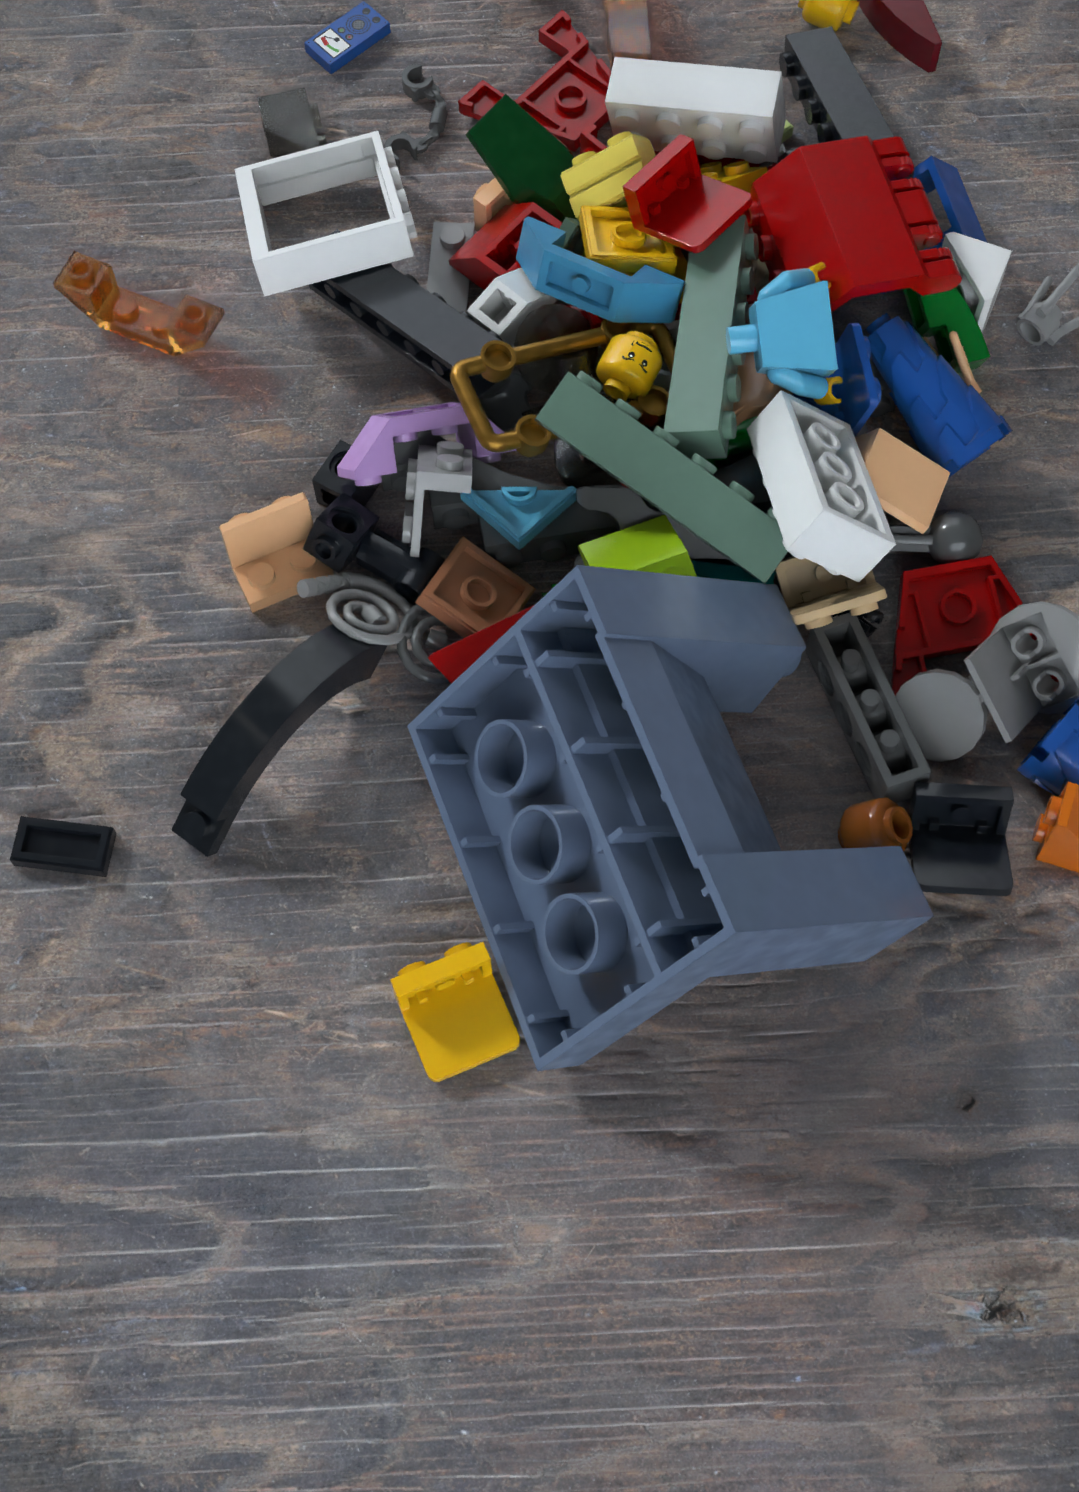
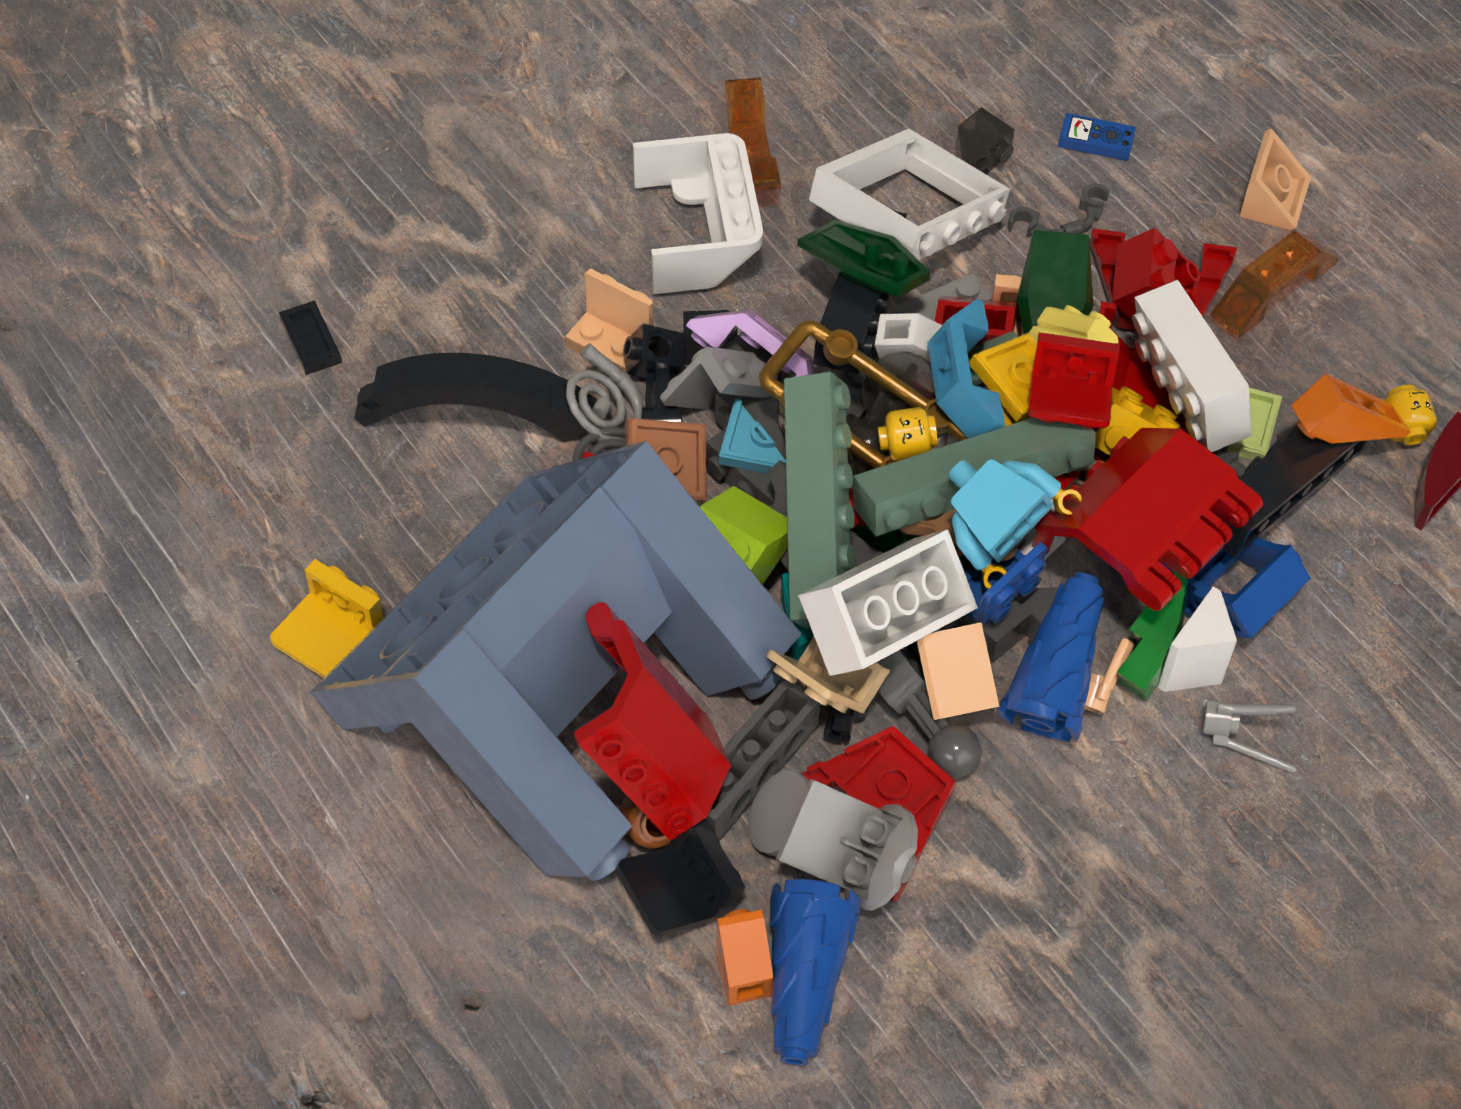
camera: 55 degrees right, 10 degrees down
(206, 365) = (707, 172): none -> white windscreen
(385, 284) = (866, 257): none -> dark green piece
(562, 84) = (1147, 264): none -> red slope
(824, 37) = (1346, 413): none -> orange slope
(894, 780) = (654, 734): none -> red hinge

